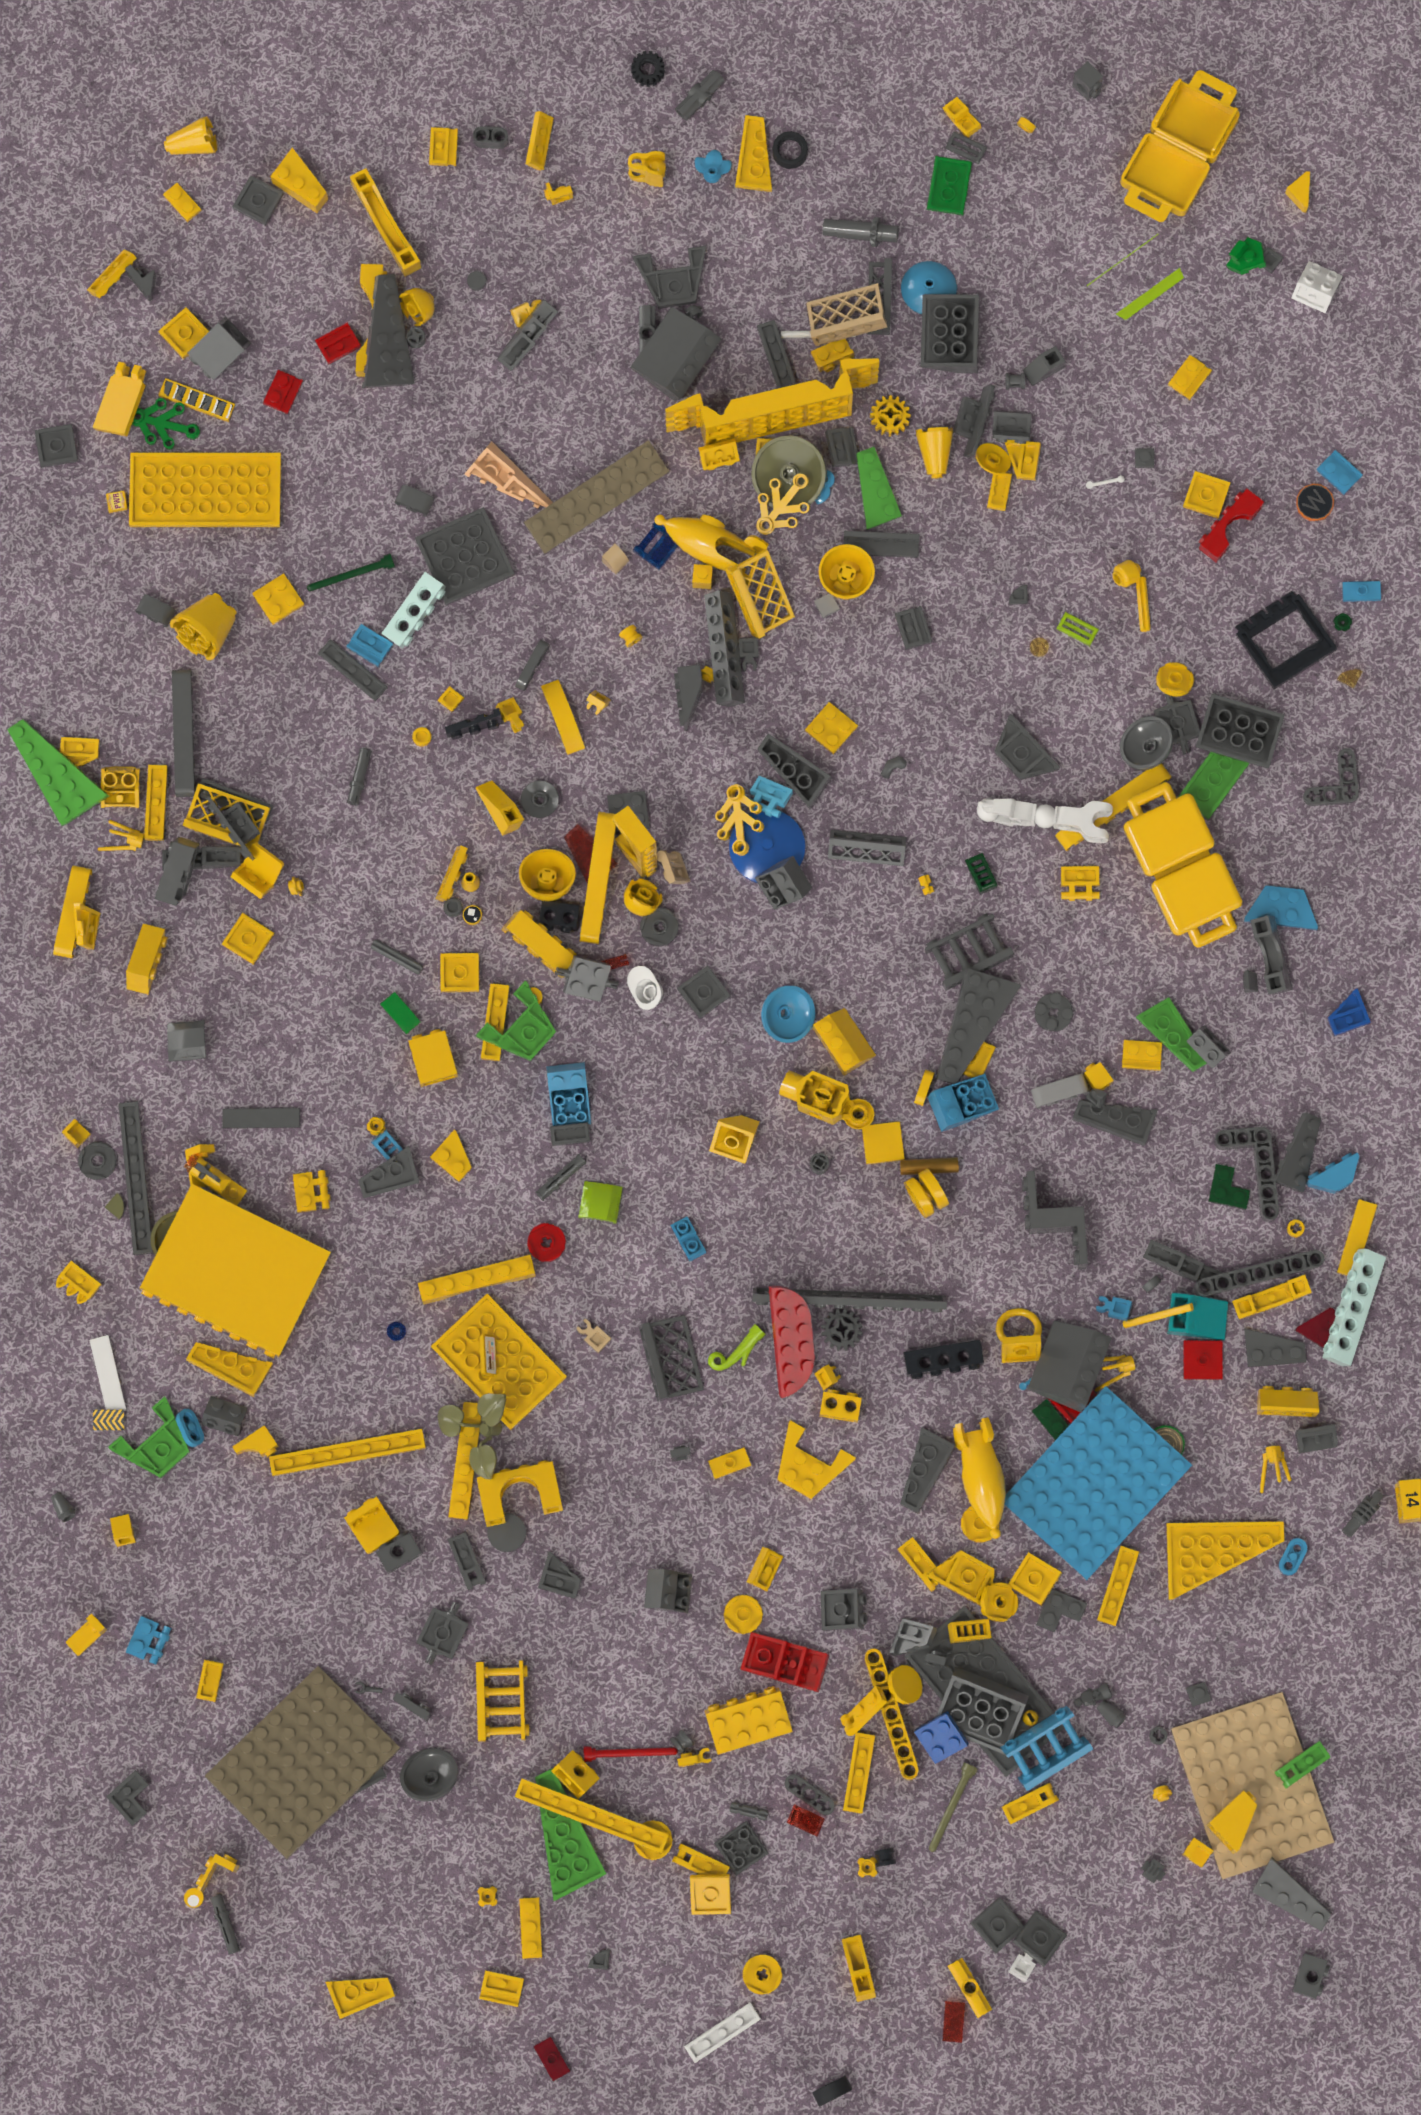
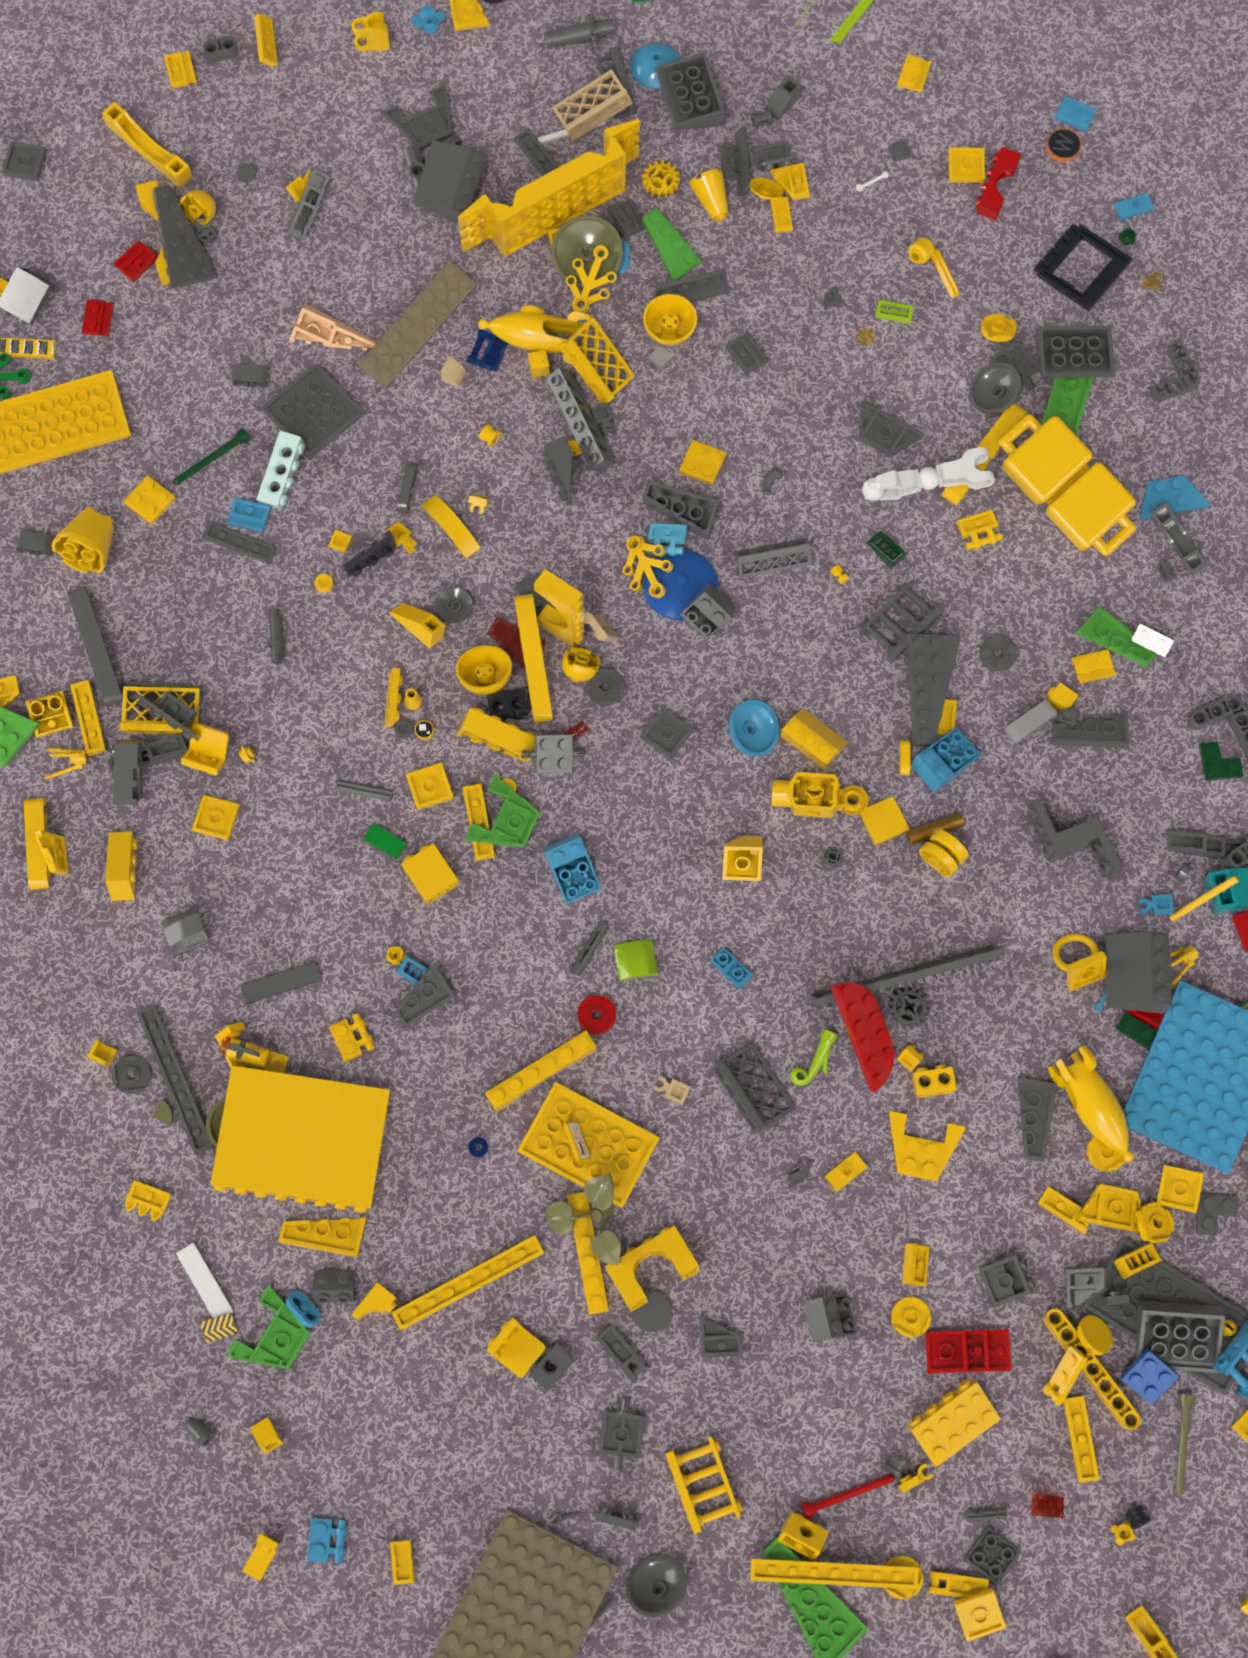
camera: 20 degrees left, 5 degrees down
(299, 182) = (57, 134): yellow wedge -> none
(452, 1157) = (479, 962): yellow wing -> none
(559, 195) = (298, 80): yellow bracket -> none
(569, 1134) = (585, 905): dark grey plate -> none
(644, 987) = (610, 745): white piece -> none
(718, 454) = (517, 254): yellow bracket -> none
(800, 1781) = (1056, 1477): dark grey beam -> none
(829, 355) = (590, 142): yellow bracket -> none
(971, 1348) = (1039, 987): black brick -> none

